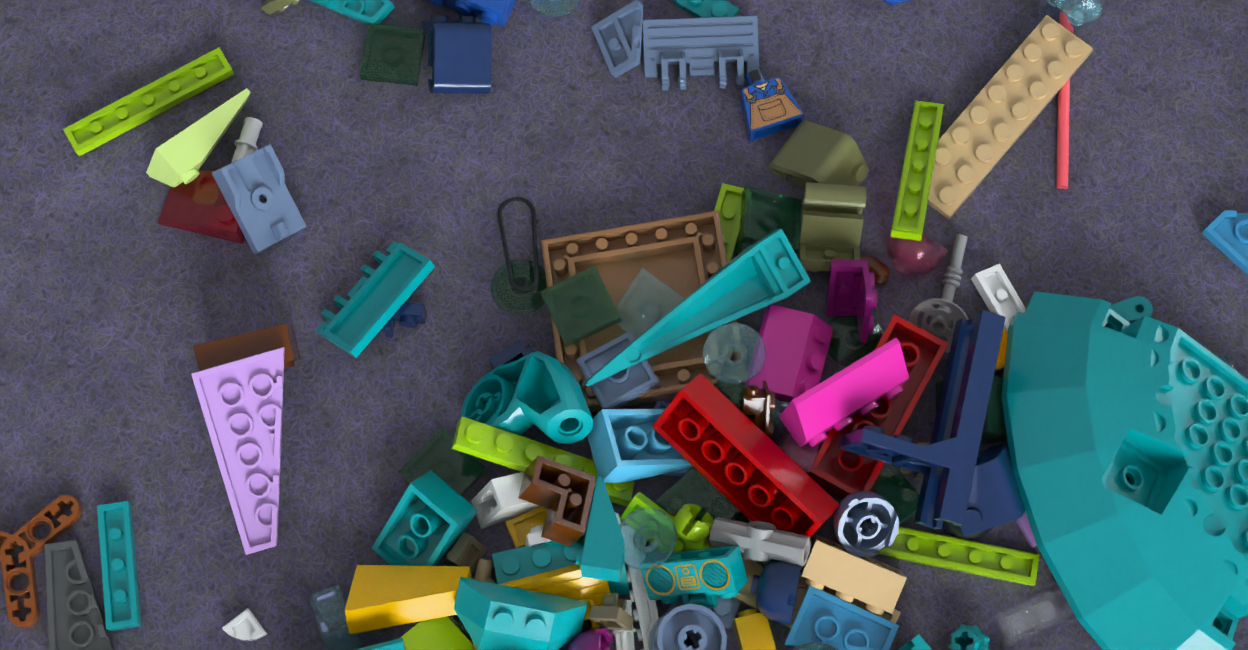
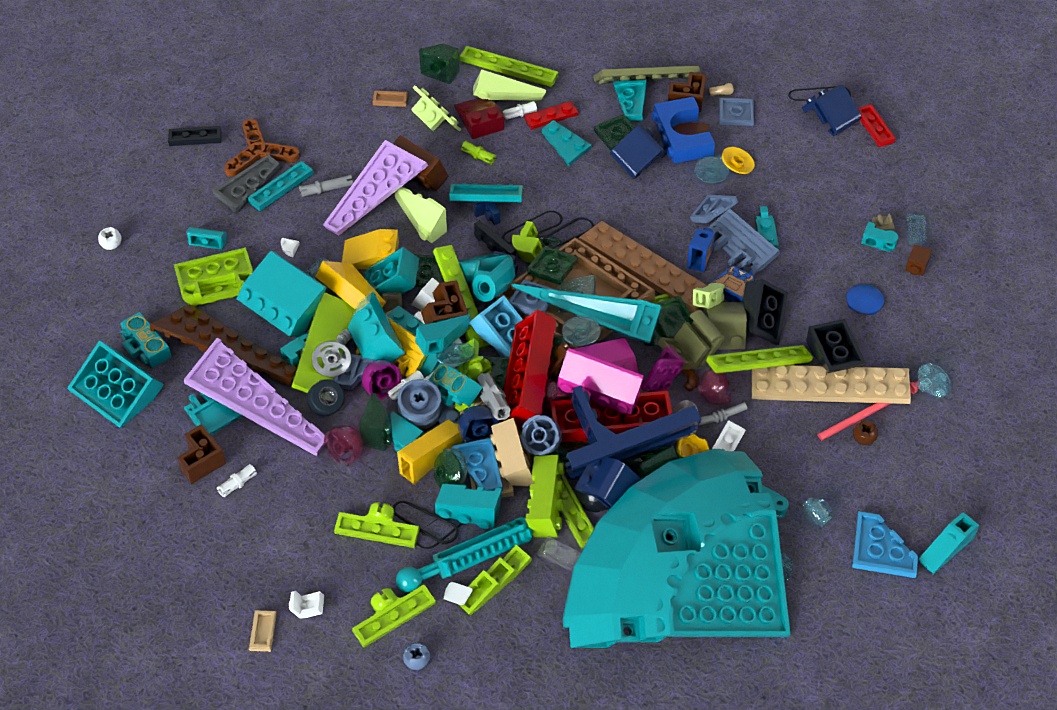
camera: 55 degrees right, 20 degrees down
(71, 299) = (390, 98): none -> medium nougat tile
(72, 188) = (440, 62): none -> clear green slope
(150, 265) = (430, 113): none -> yellowish green bracket
(171, 502) = (318, 187): none -> light grey pin
(244, 183) = (486, 133): sand blue piece -> none
(280, 254) = (478, 152): none -> lime pin
(287, 111) = (556, 113): none -> red plate
(347, 521) = (370, 248): none -> yellow slope
(354, 129) = (566, 143): none -> teal wing
(357, 408) = (425, 214): none -> yellowish green wedge
(453, 274) = (561, 219): none -> black piece
(462, 347) = (492, 240): none -> black plate
(507, 314) = (526, 243): none -> lime brick
(612, 613) = (406, 367): dark tan tile -> none
(652, 187) = (642, 263): none -> medium nougat plate
(684, 102) = (702, 241): none -> blue torso
(778, 157) = (709, 295): none -> yellowish green leg
(841, 104) = (765, 309): none -> black slope
(945, 579) = (545, 496): none -> lime wedge
(960, 71) = (834, 346): none -> black slope
(1104, 128) = (865, 432): none -> reddish brown piece
(1174, 274) = (817, 511): none -> clear light blue head

